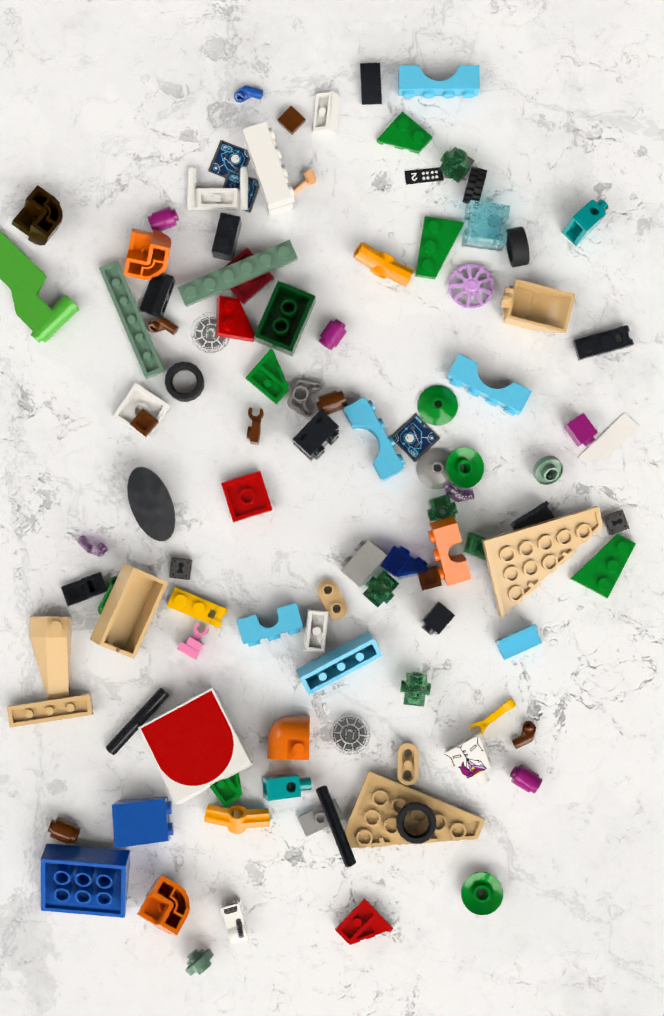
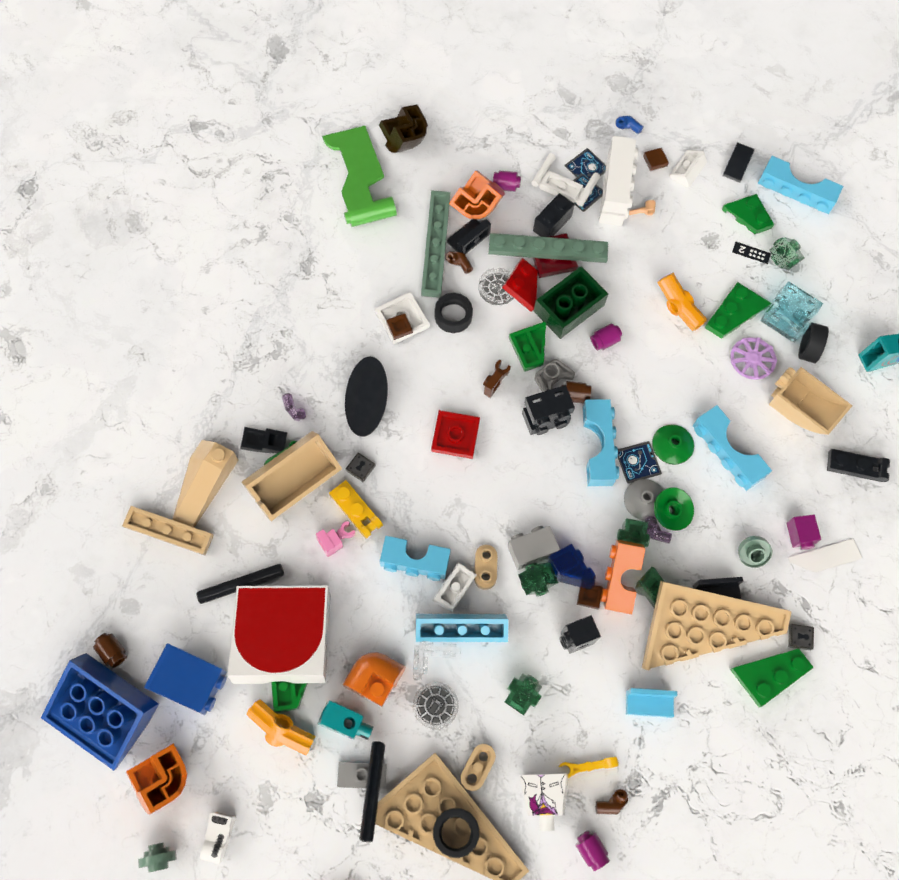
camera: 25 degrees right, 15 degrees down
(475, 184) = (797, 273): black tyre -> none

